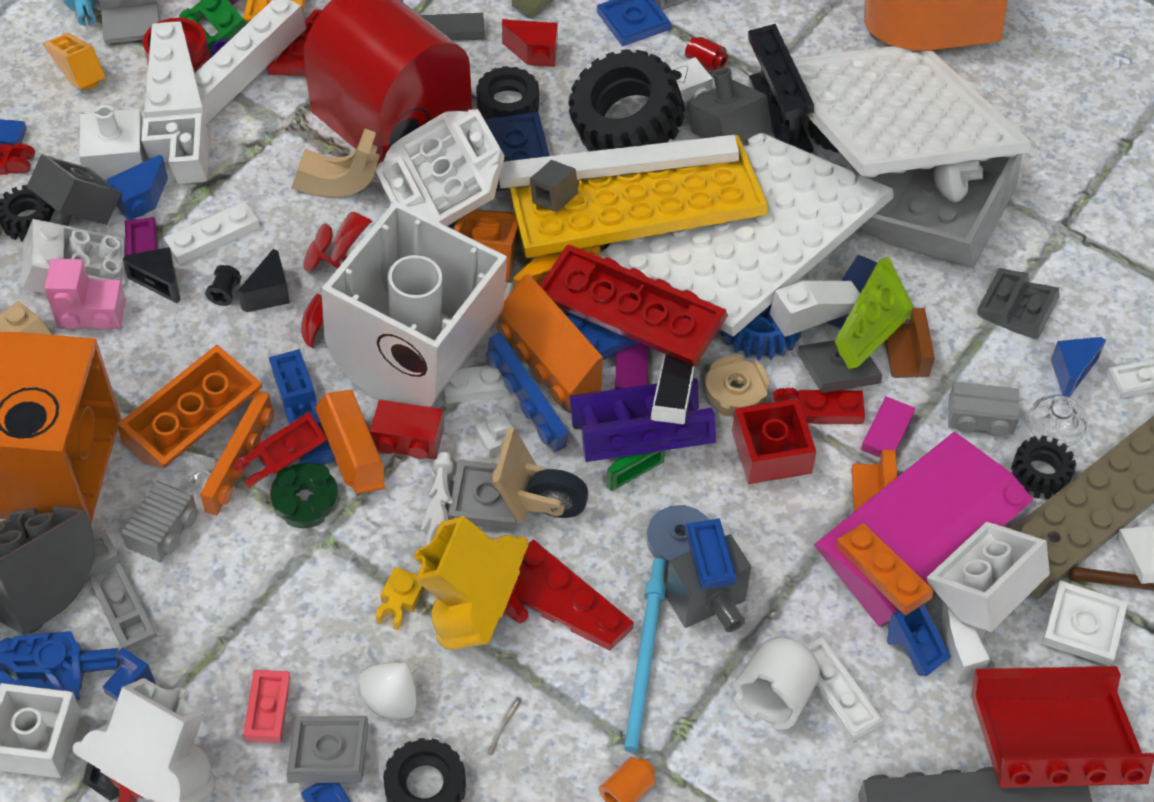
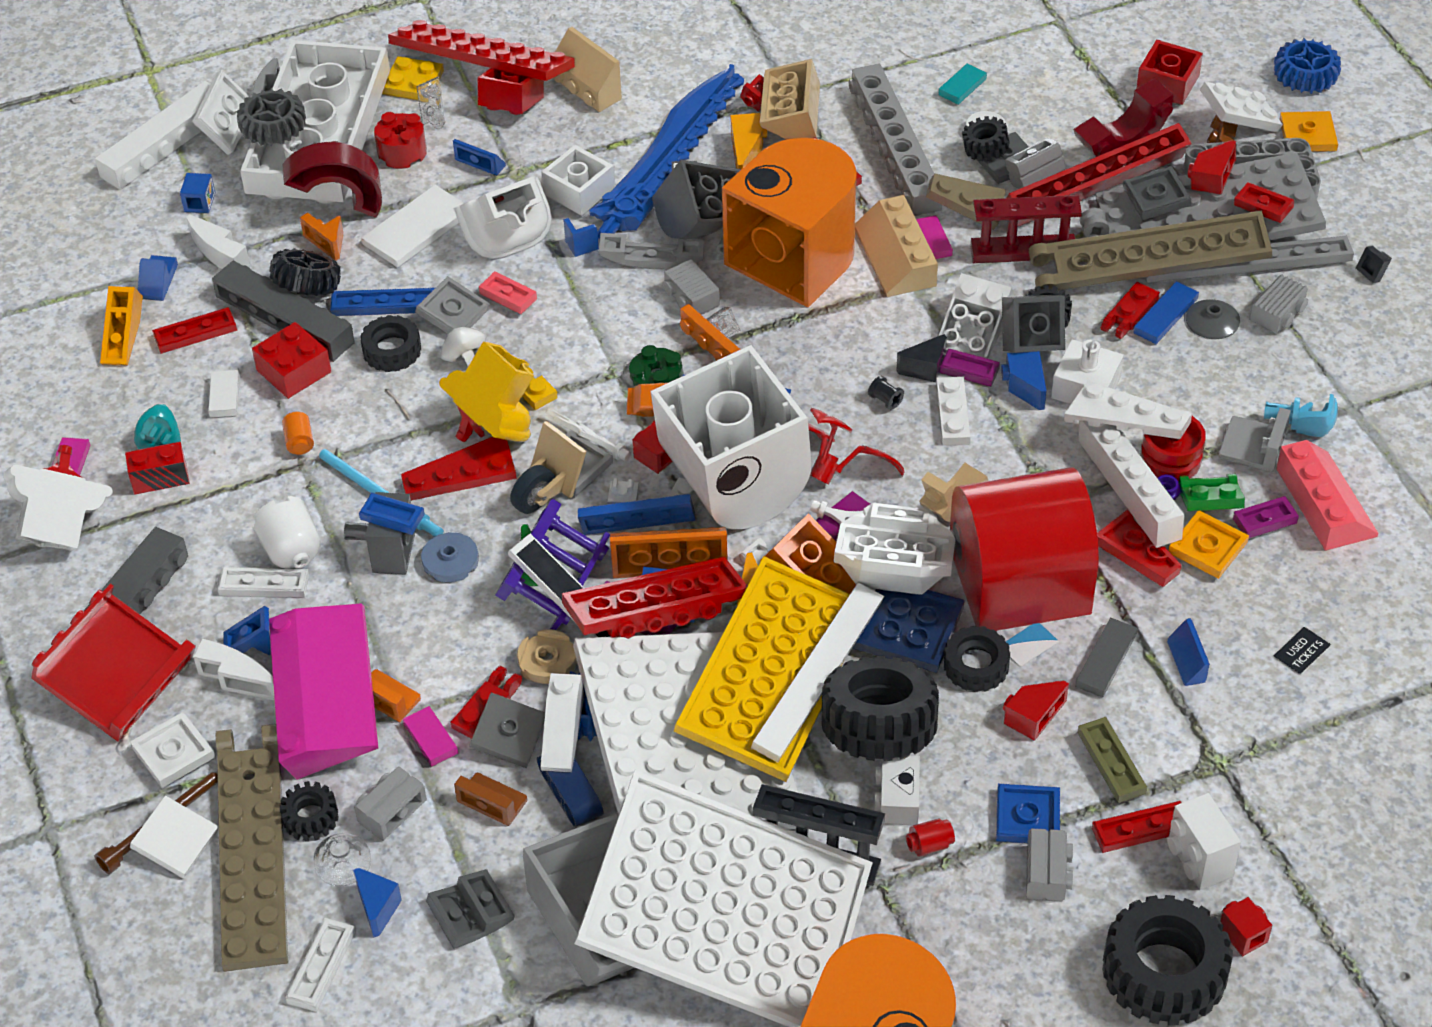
camera: 125 degrees right, 5 degrees down
(76, 60) = (1213, 386): light orange slope -> none
(81, 300) = (924, 305): bright pink brick -> none
(182, 142) = (1045, 411): white brick -> none
(187, 408) = (769, 324): orange slope -> none
(265, 286) = (868, 418): black slope -> none
(283, 448) = (691, 353): red hinge -> none
(554, 185) = (815, 603): dark grey brick -> none
(729, 109) = (829, 779): dark grey brick -> none
(773, 441) = (471, 639): red brick -> none
(875, 316) = (525, 766): lime wing -> none
(884, 569) = (300, 616): orange plate -> none
(990, 574) = (242, 679): white slope -> none

